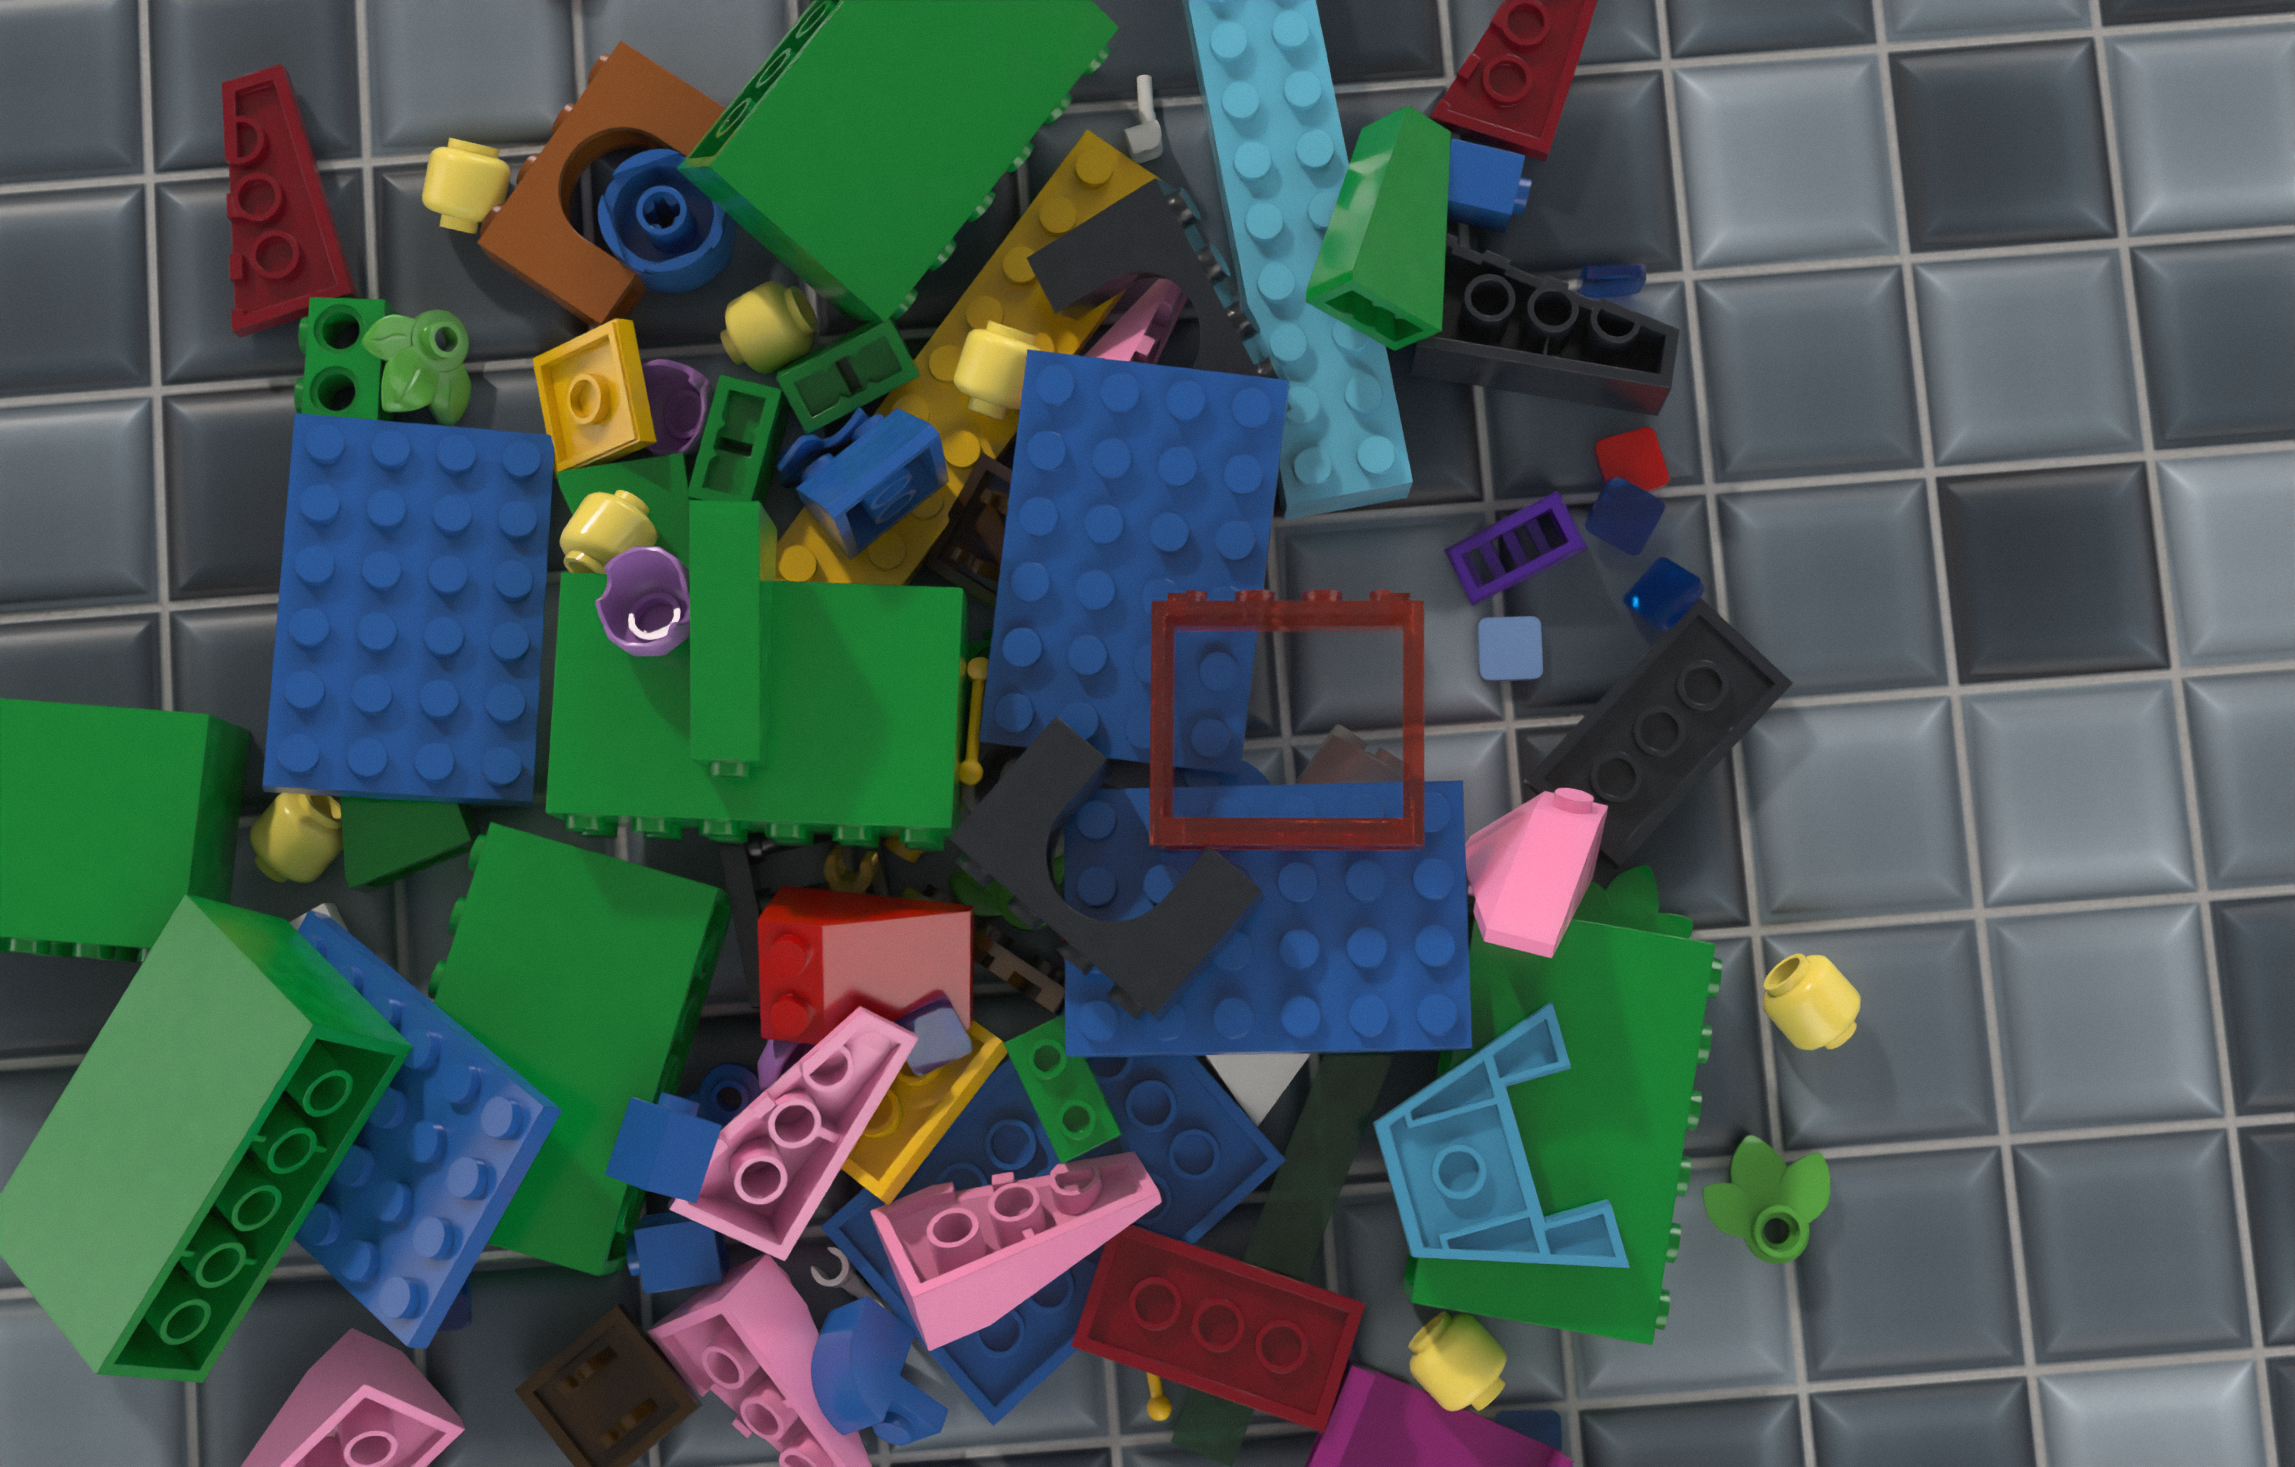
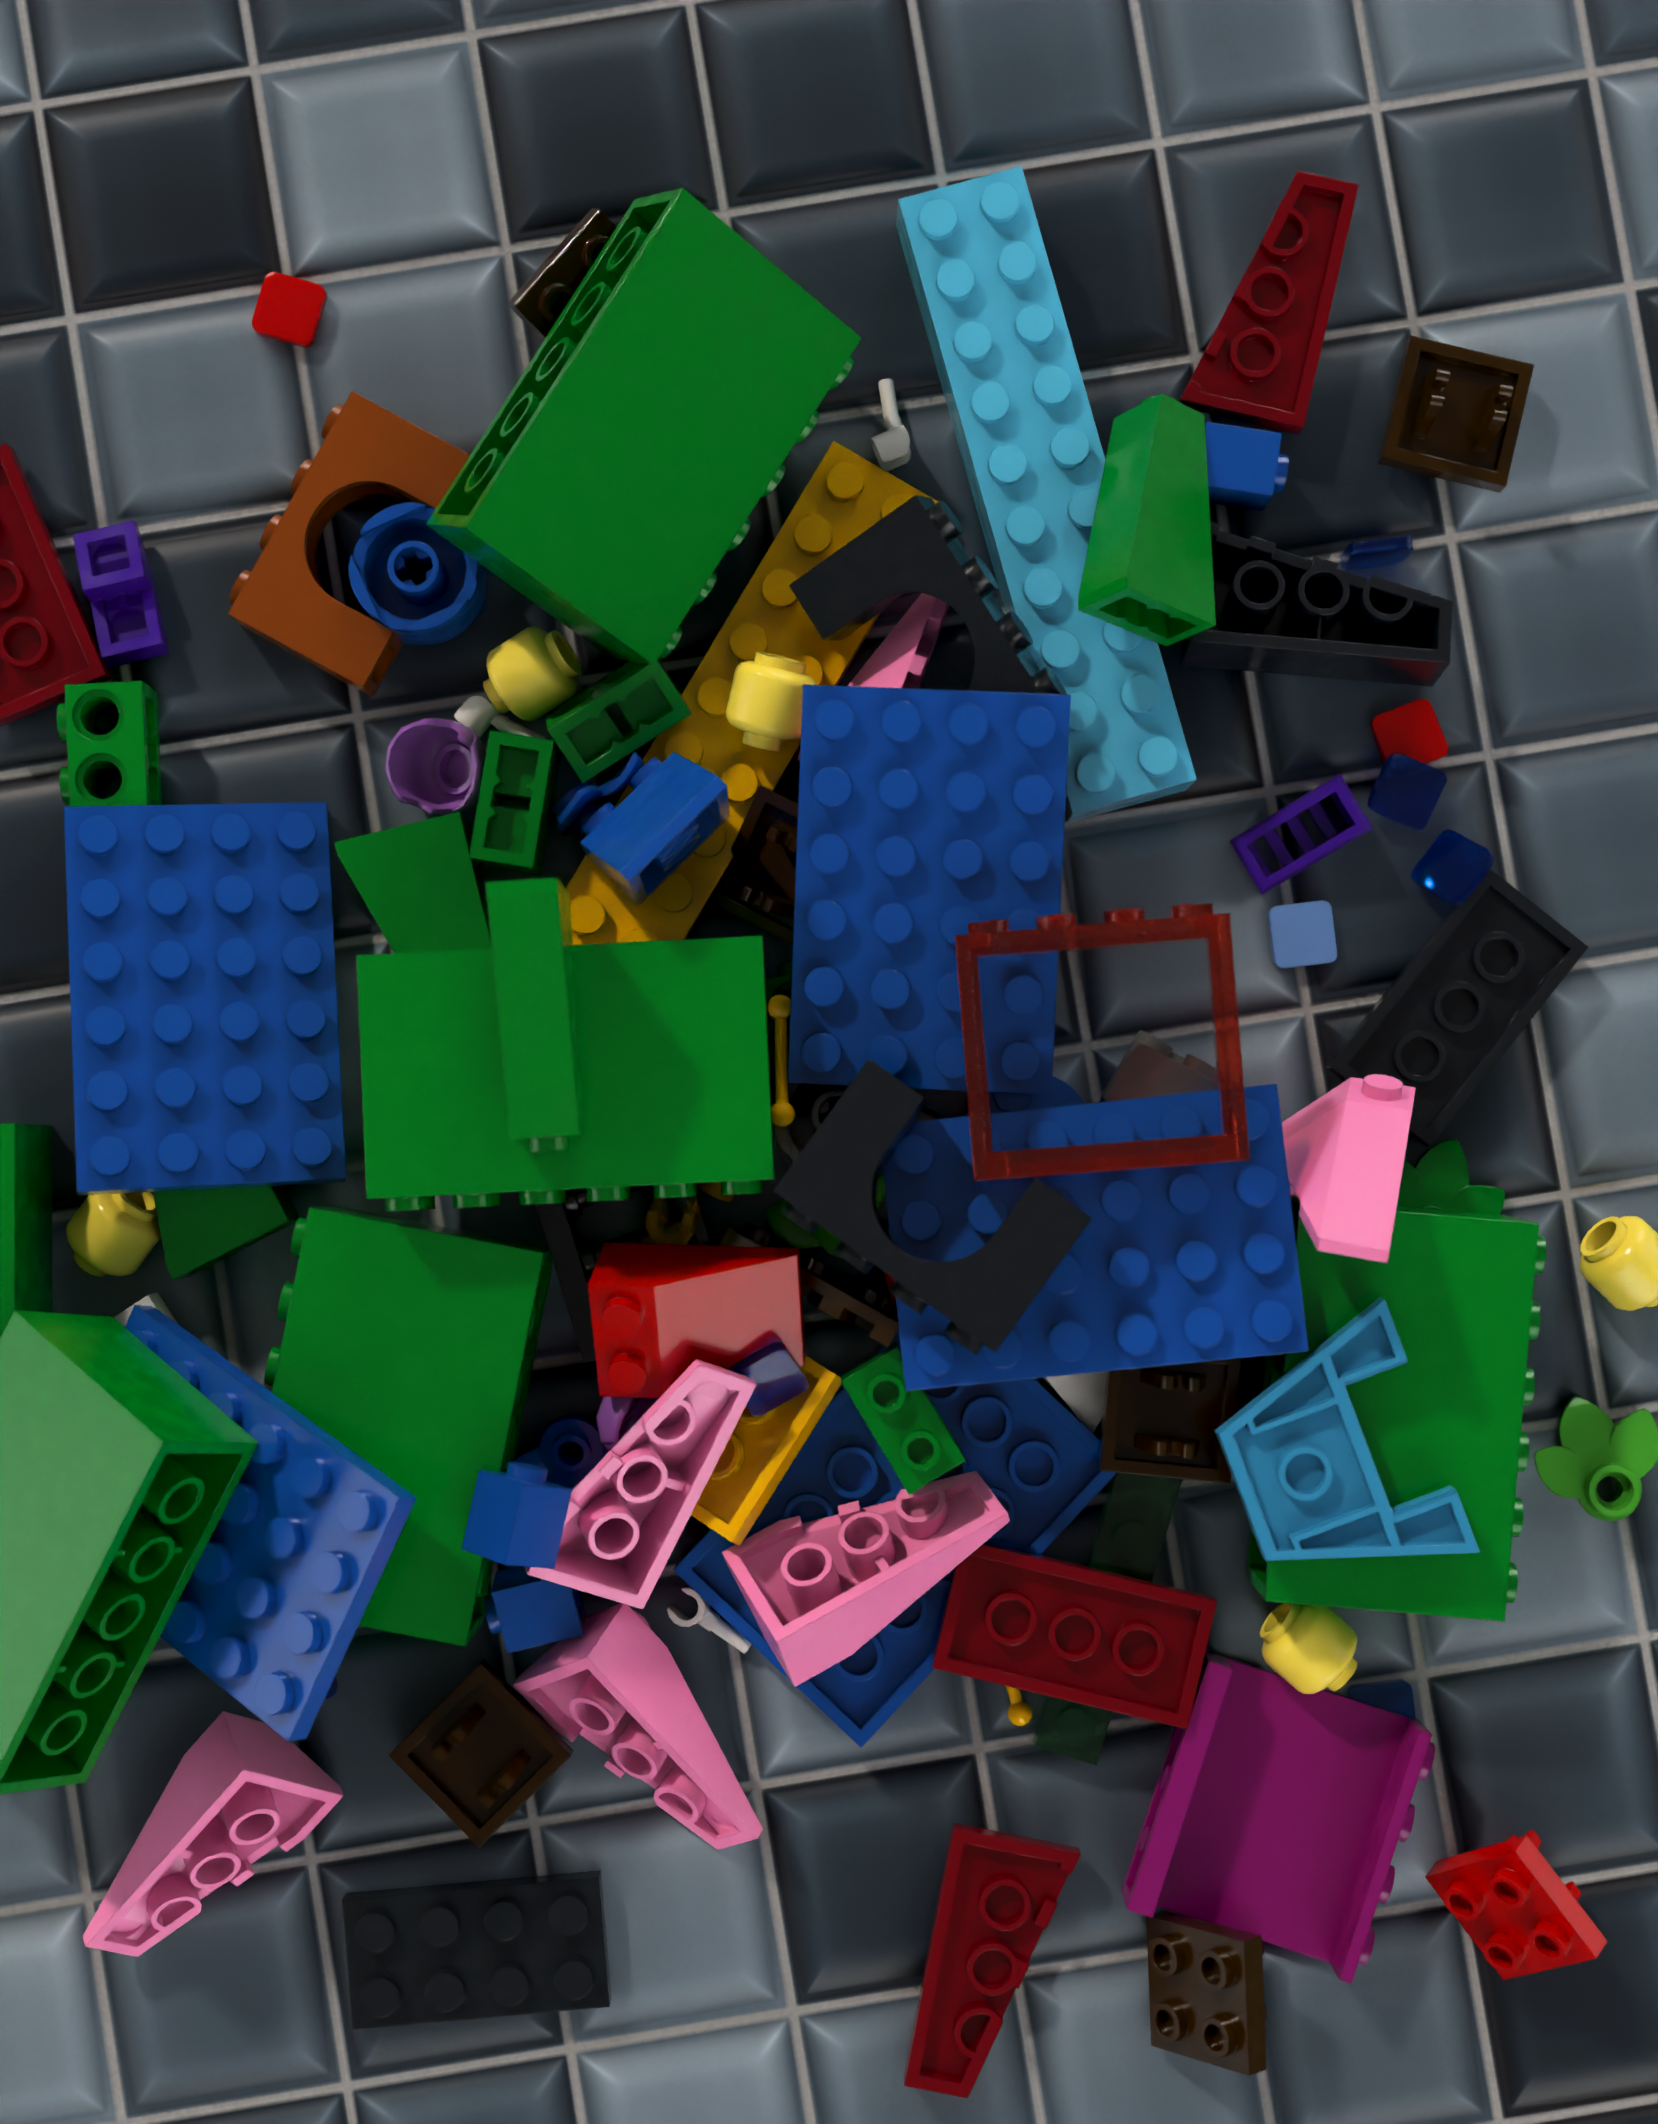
camera: 10 degrees left, 5 degrees up
(376, 218) = (121, 594): none -> dark purple slope
(417, 369) = (182, 748): bright green plate -> none
(465, 184) = (208, 552): light yellow head -> none
(595, 397) = (364, 762): yellow tile -> none
(604, 529) = (395, 908): light yellow head -> none
(646, 601) = (448, 982): medium lavender hair -> none
(713, 361) = (480, 714): none -> white hand
(859, 1376) = (726, 1711): blue brick -> none
(1326, 1110) = (1167, 1418): none -> dark brown plate
(1700, 154) = (1455, 414): none -> dark brown plate

